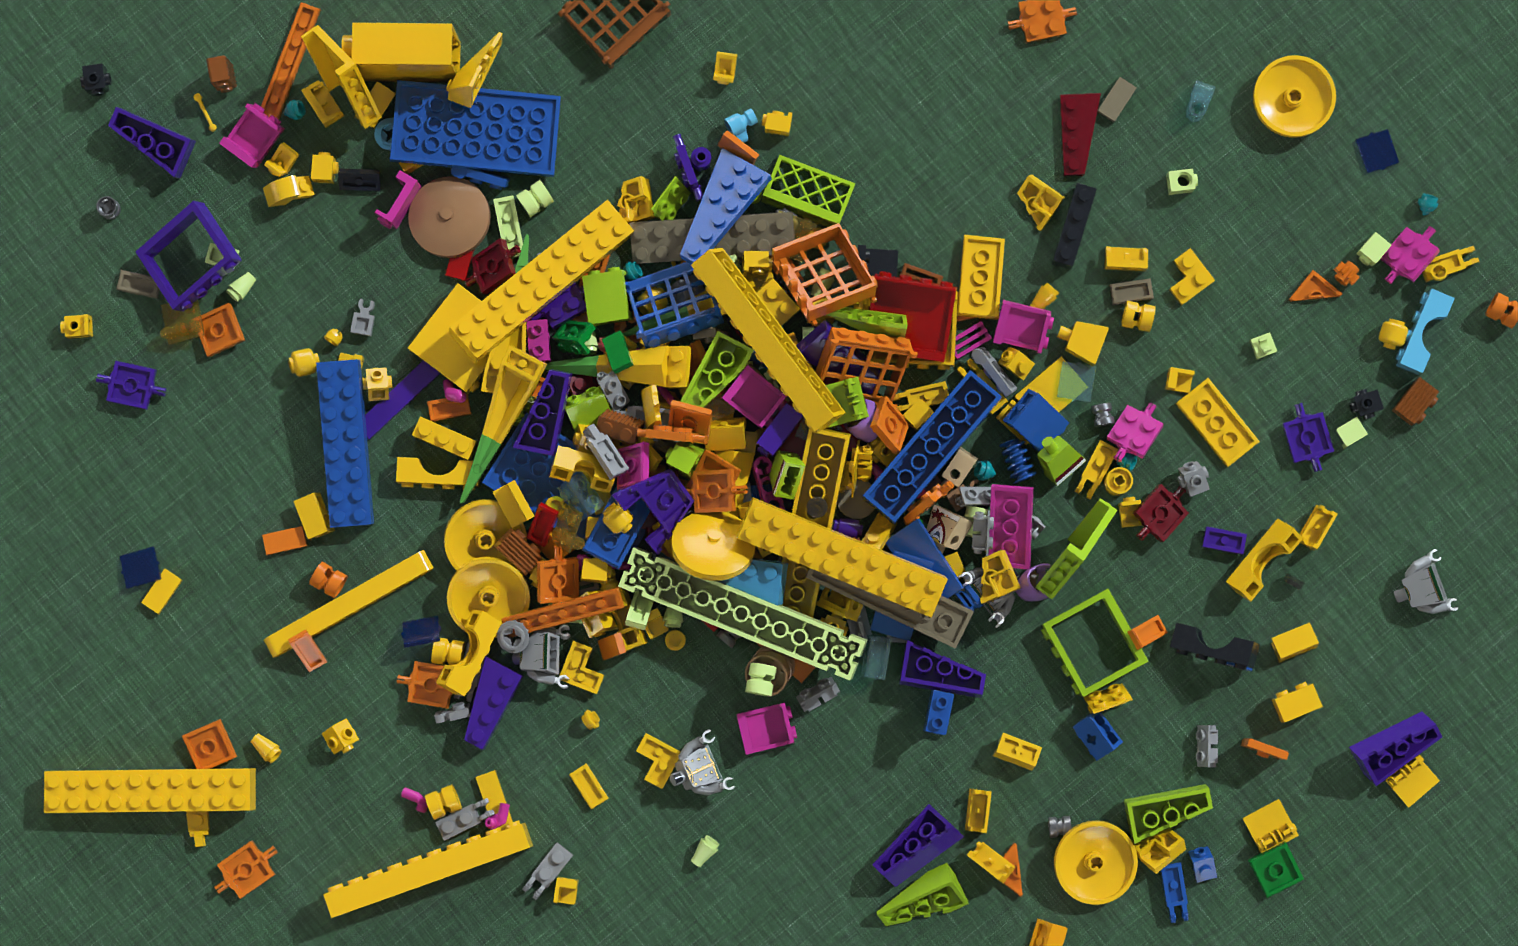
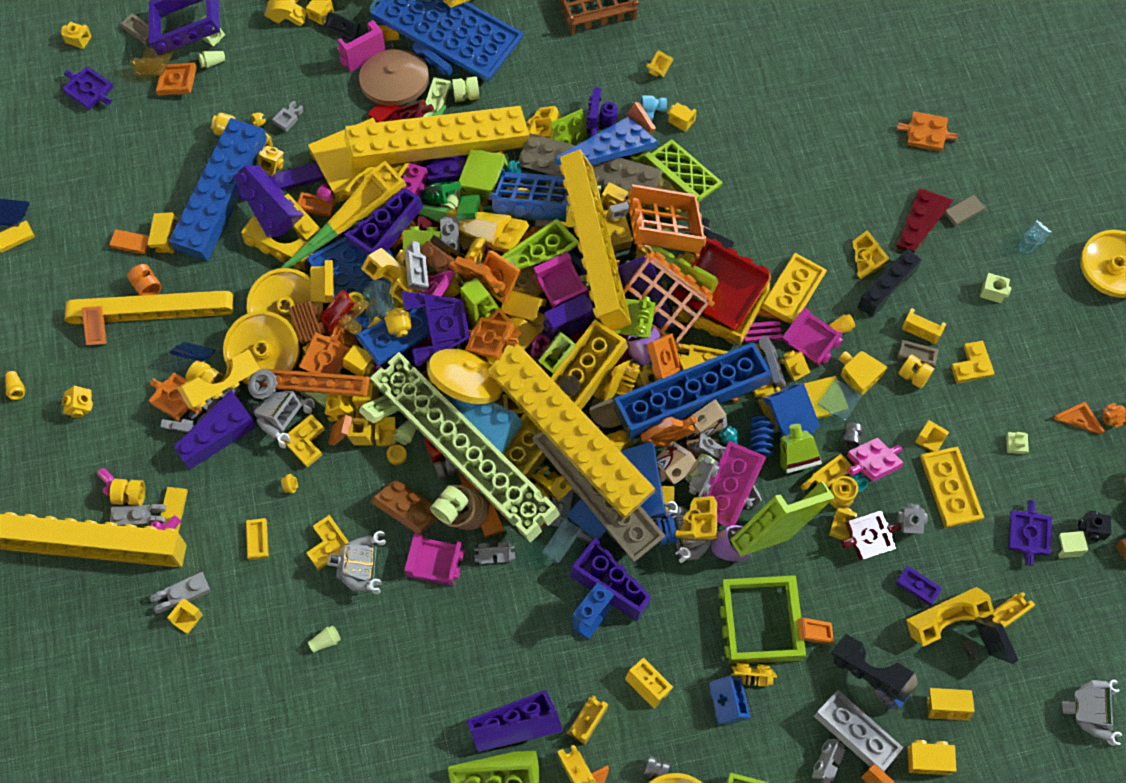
camera: 20 degrees right, 20 degrees down
(406, 439) = (267, 201): none -> dark purple wedge
(620, 410) = (445, 247): none -> dark brown tile
(714, 691) = (405, 506): none -> dark orange plate
(773, 290) = (617, 211): none -> light grey tile
(1223, 709) = (858, 731): none -> light grey plate
(1314, 567) = (996, 640): none -> black tile

